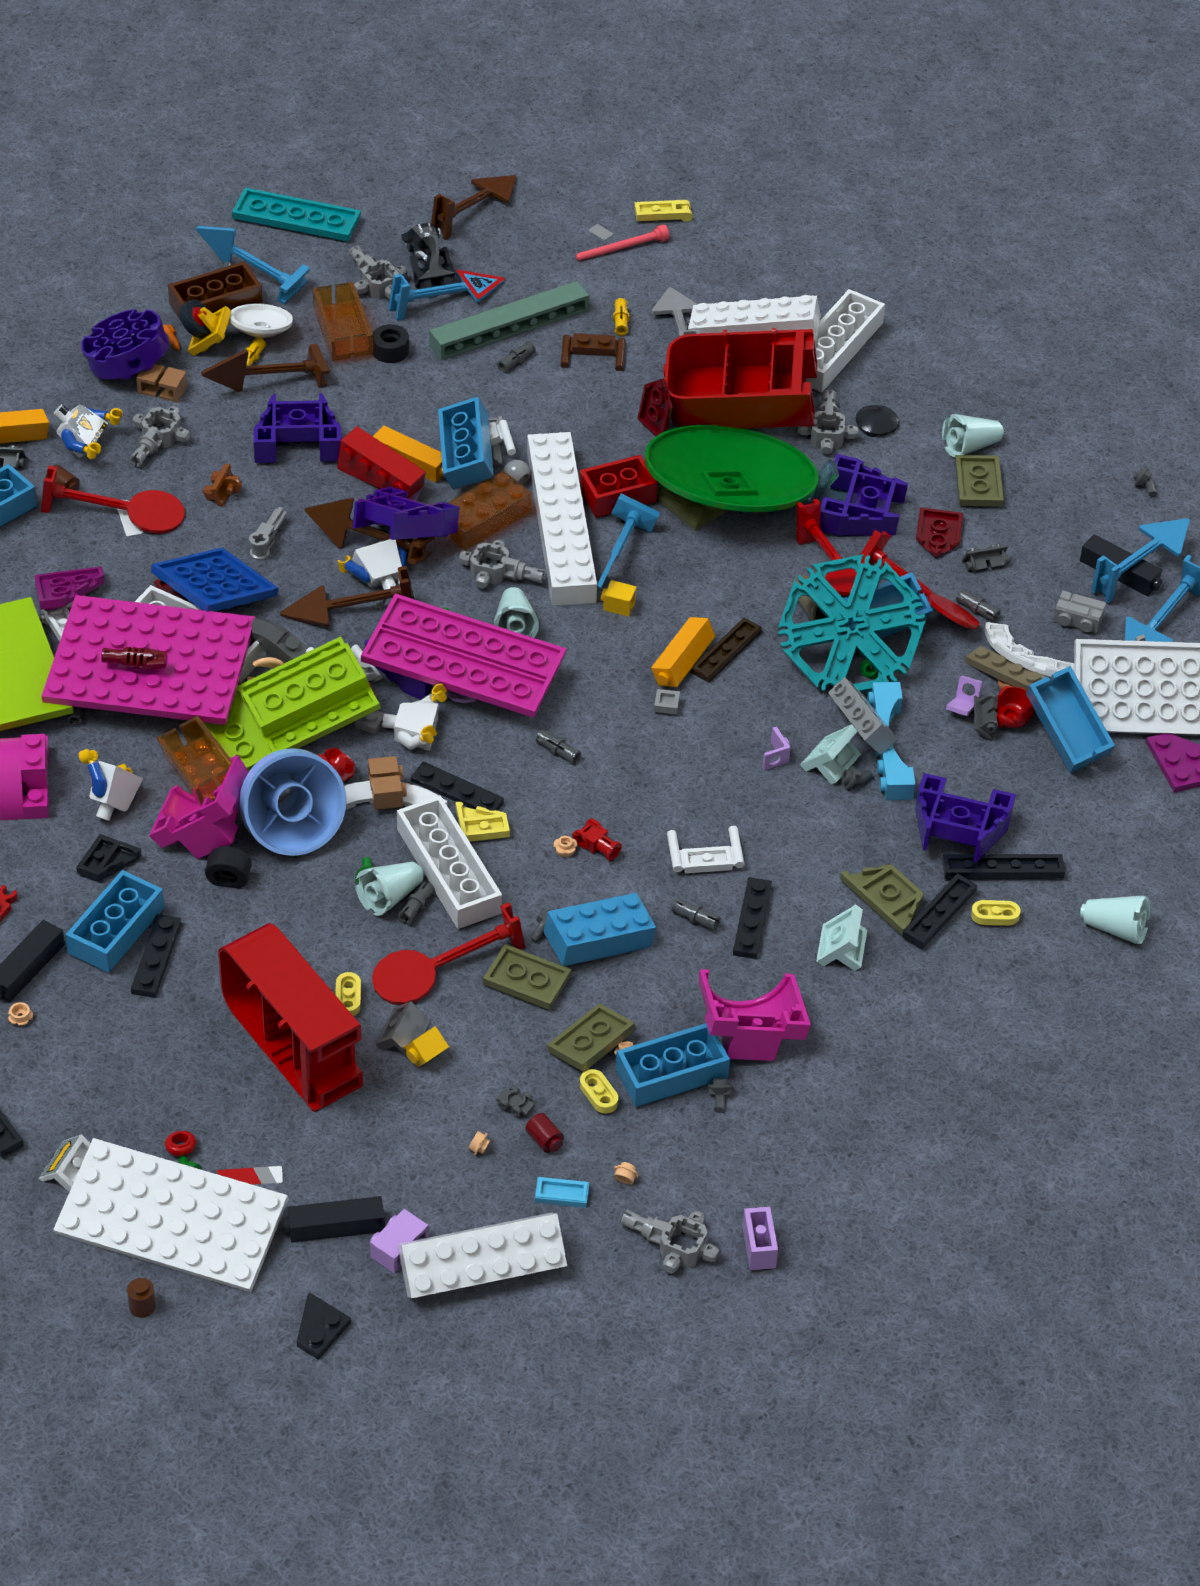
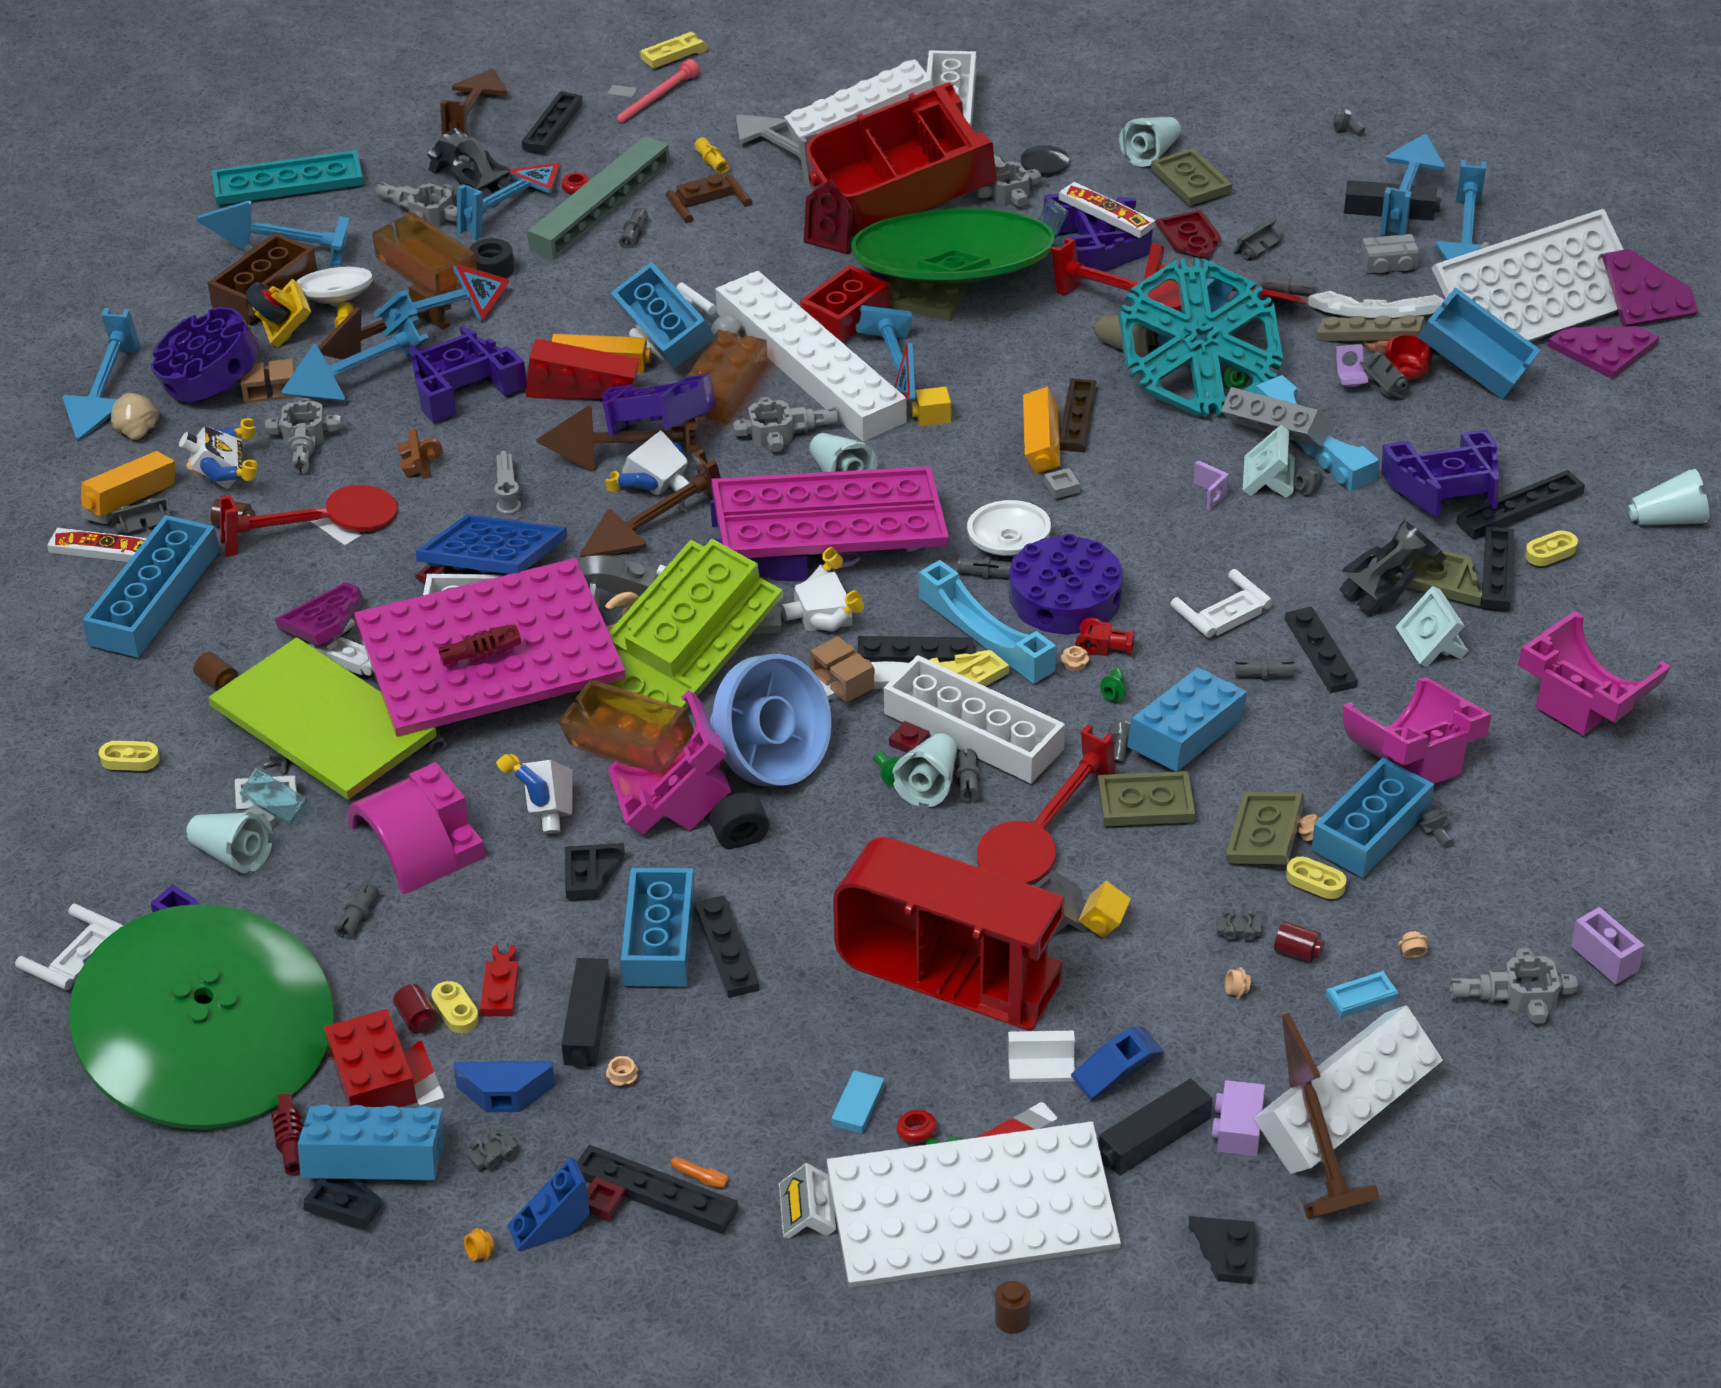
camera: 25 degrees left, 5 degrees down
(20, 1113) = (706, 1176): none -> orange piece
(29, 356) = (91, 411): none -> dark azure piece
(51, 373) = (134, 415): none -> tan hair
(157, 1108) = (857, 1102): none -> medium azure tile
(191, 394) = (316, 378): none -> dark azure piece
(302, 1133) = (1041, 1056): none -> white panel
(349, 1160) = (1116, 1061): none -> blue slope
(360, 365) = (478, 287): none -> dark azure piece
(399, 854) = (908, 737): none -> dark red plate
(419, 1326) = (1302, 1072): none -> reddish brown piece
(497, 298) = (574, 181): none -> red piece
(509, 762) = (1027, 654): none -> medium azure arch
(523, 240) = (552, 122): none -> black plate
(573, 880) = (1113, 686): none -> green plate
(592, 721) = (1007, 526): none -> white dish
(601, 784) = (1064, 582): none -> dark purple brick
(838, 882) = (1392, 559): none -> black hips
(873, 485) = (1107, 209): none -> tile
(916, 1023) = (1574, 683): none -> dark pink piece

